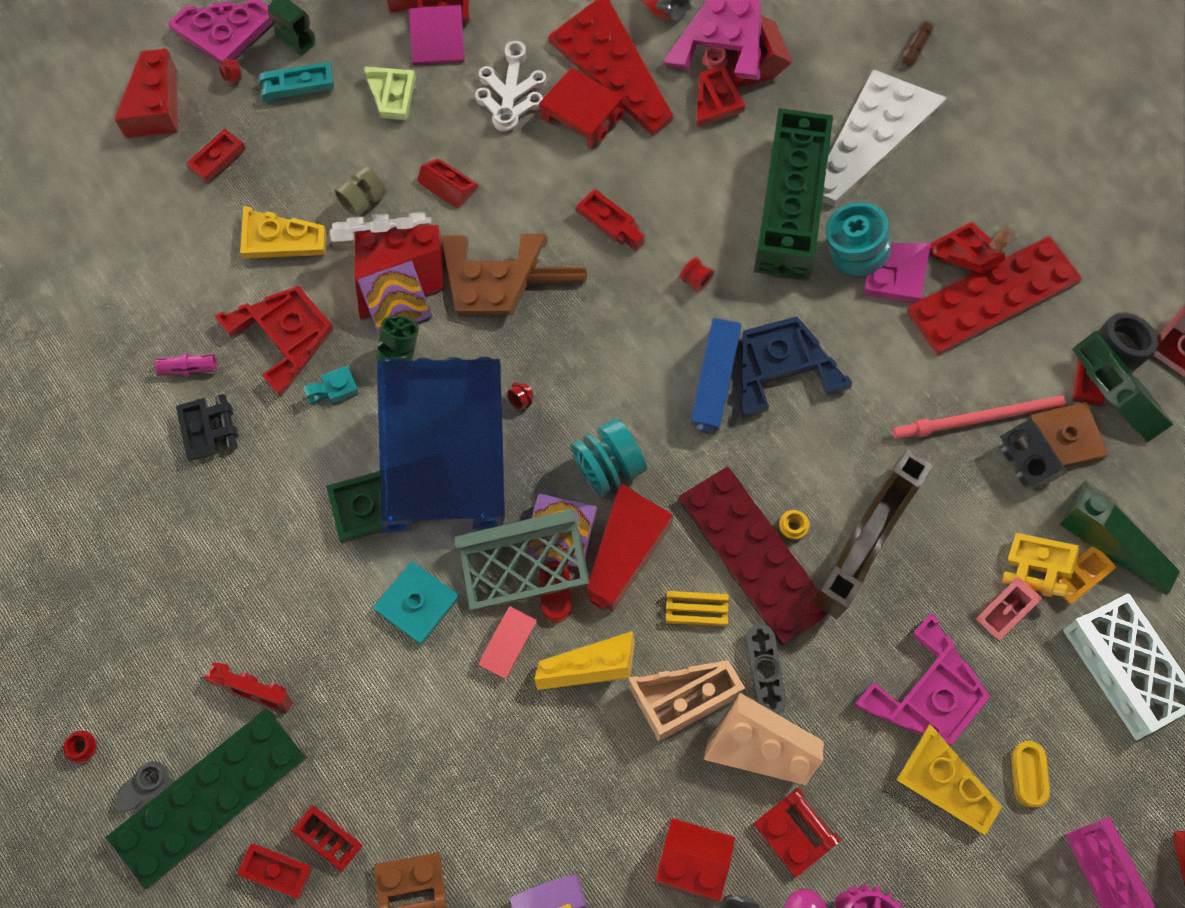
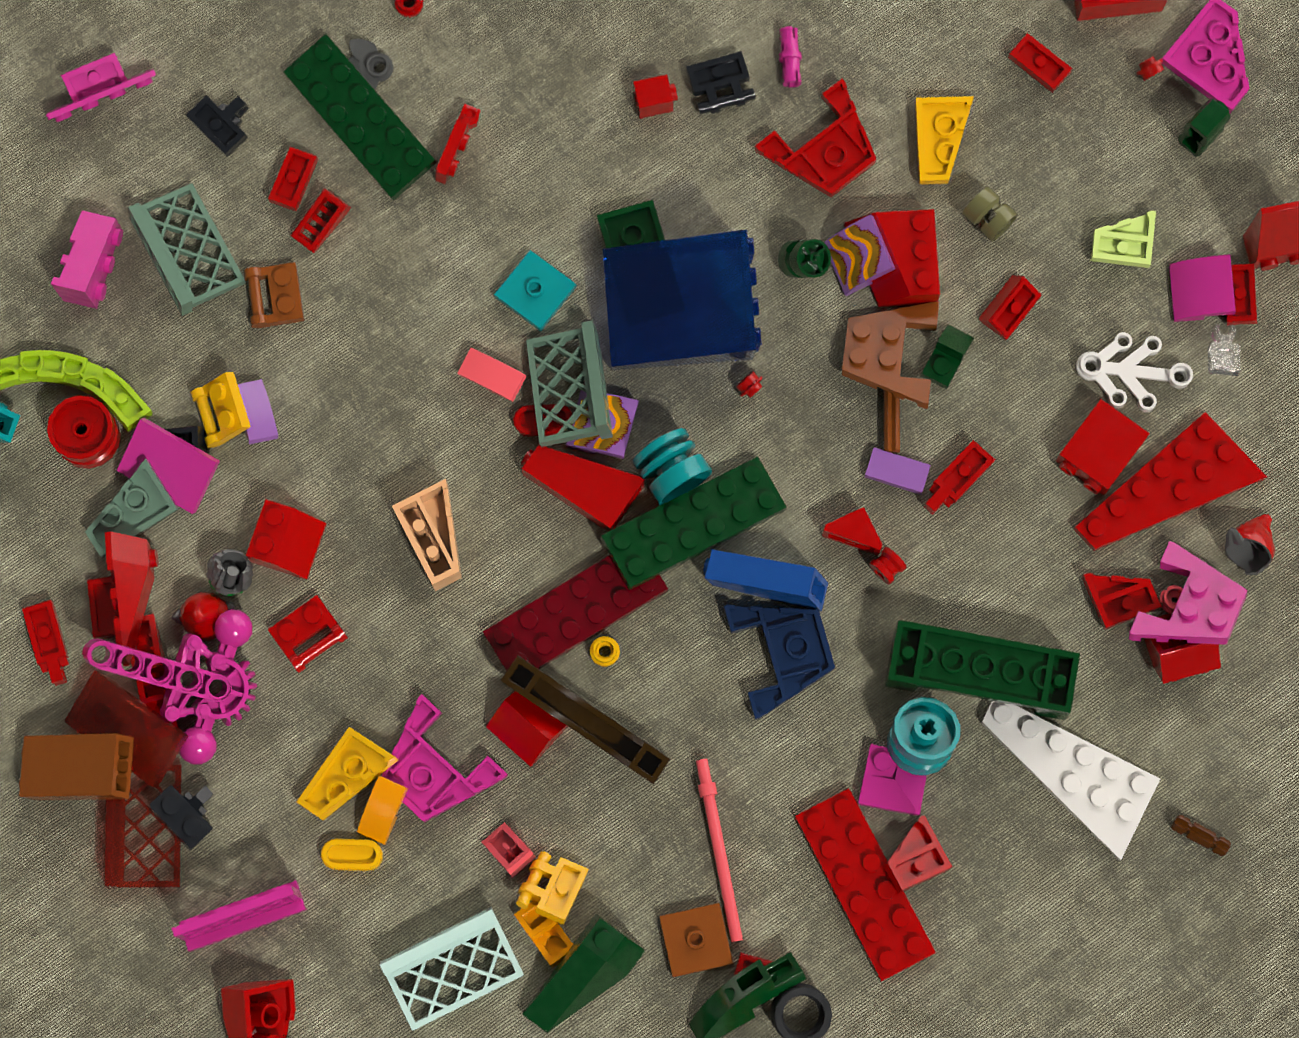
camera: 90 degrees right, 10 degrees up
(214, 488) = (654, 96): none -> red brick
(296, 81) = (1139, 141): teal plate -> none
(336, 385) = (765, 203): teal plate -> none
(380, 223) = (940, 236): white plant -> none
(493, 230) = (947, 356): none -> dark green slope
(497, 21) = (1222, 354): none -> clear plate
(589, 664) = (466, 448): yellow wing -> none
(604, 270) = (897, 471): none -> medium lavender tile
(663, 300) = (855, 531): none -> red slope
(670, 449) = (693, 523): none -> dark green plate
(697, 597) = (523, 528): yellow tile -> none
(764, 743) = (384, 604): light nougat wedge -> none
(770, 645) = (450, 605): dark grey beam -> none
(881, 599) = (525, 727): none -> red slope
(982, 740) = (382, 809): none -> light orange slope
(1002, 239) = (919, 890): dark orange axle -> none
(1038, 451) = (672, 899): black brick -> none

